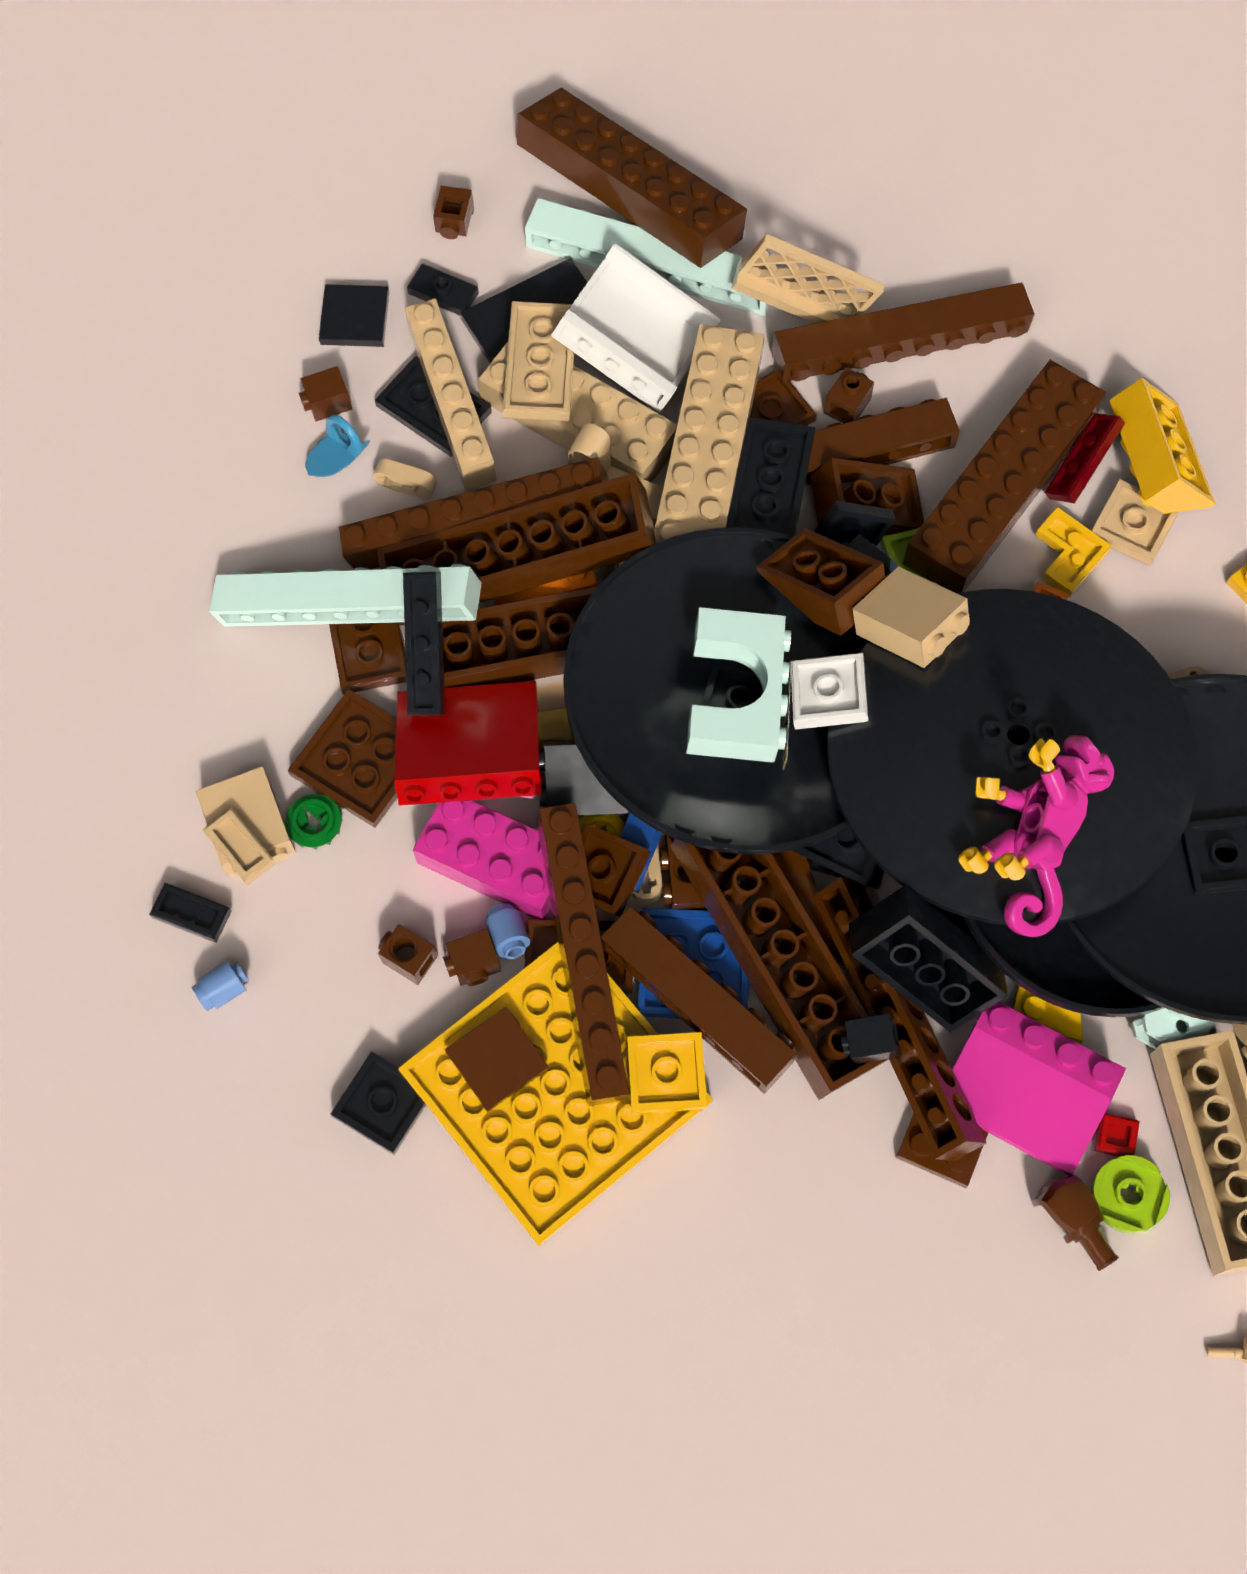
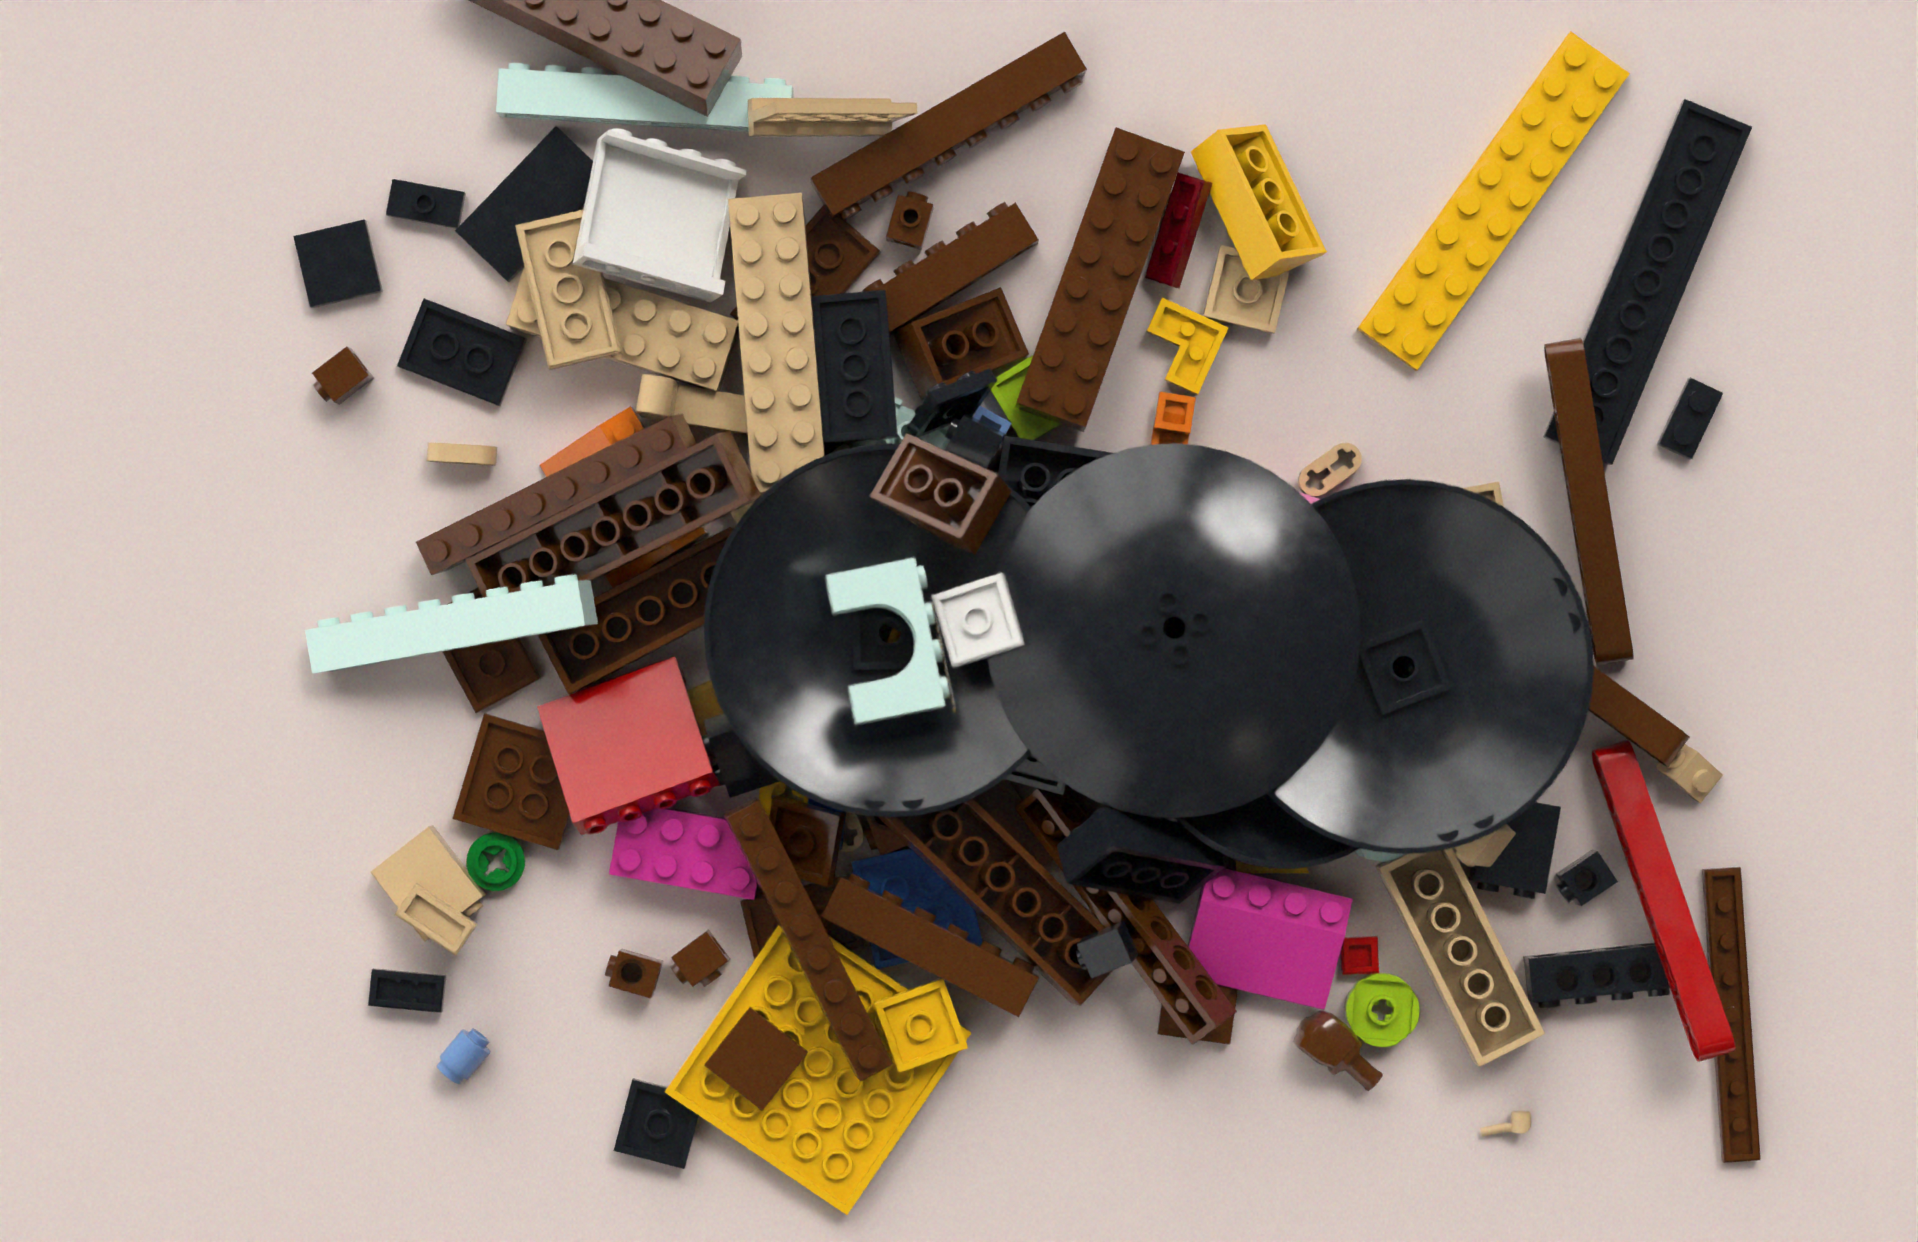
camera: 20 degrees left, 20 degrees up
(335, 450) = (375, 443): dark azure piece -> none
(424, 643) = (555, 669): black tile -> none
(450, 394) = (480, 346): tan brick -> none
(453, 218) = (397, 96): reddish brown brick -> none
(507, 931) = (725, 923): medium blue brick -> none
(911, 616) = (1041, 521): tan brick -> none
(1049, 821) = (1223, 719): dark pink animal -> none

